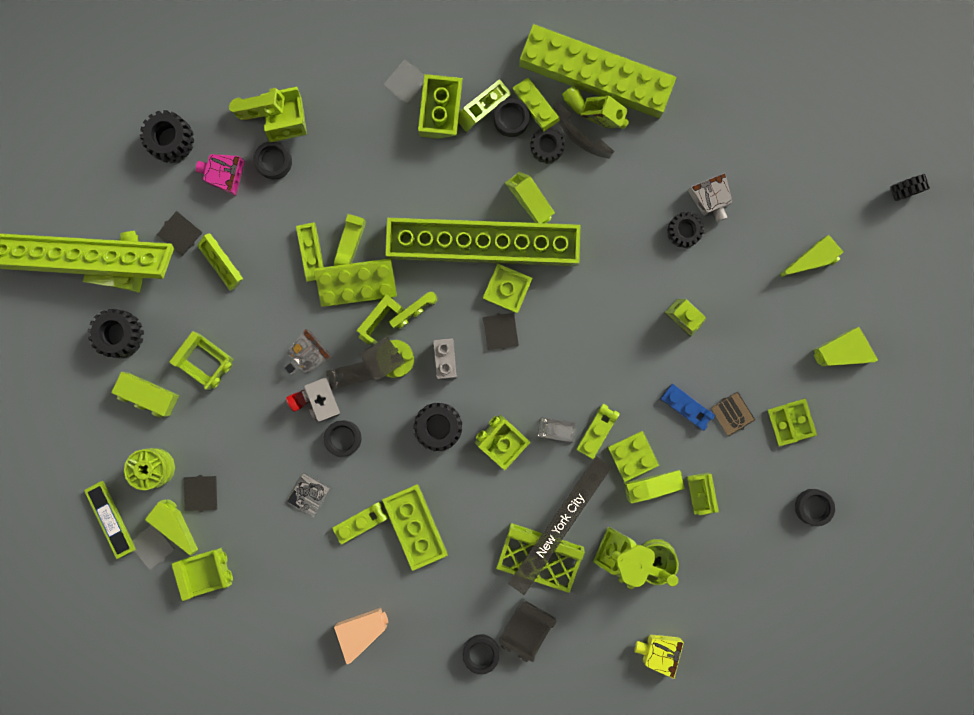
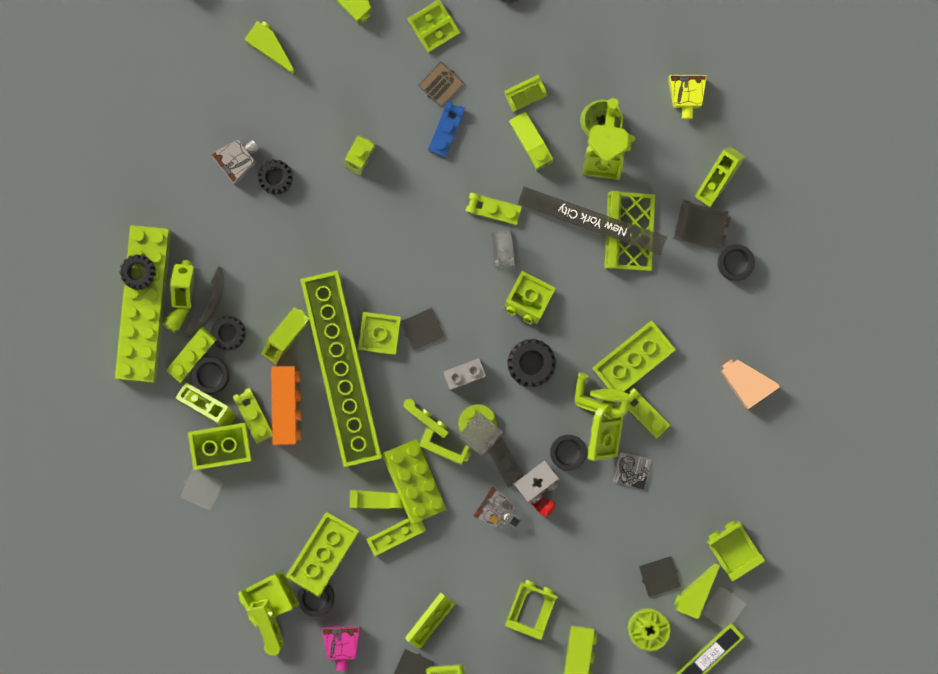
camera: 110 degrees left, 0 degrees up
(310, 175) = (322, 554): none -> lime plate
(362, 486) = (607, 419): none -> lime plate
(461, 148) = (253, 416): none -> lime plate
(461, 178) = (285, 405): none -> orange brick
(570, 662) = (720, 175): none -> lime slope
(632, 58) = (126, 272): none -> black tyre
(633, 456) = (508, 168): lime plate -> none

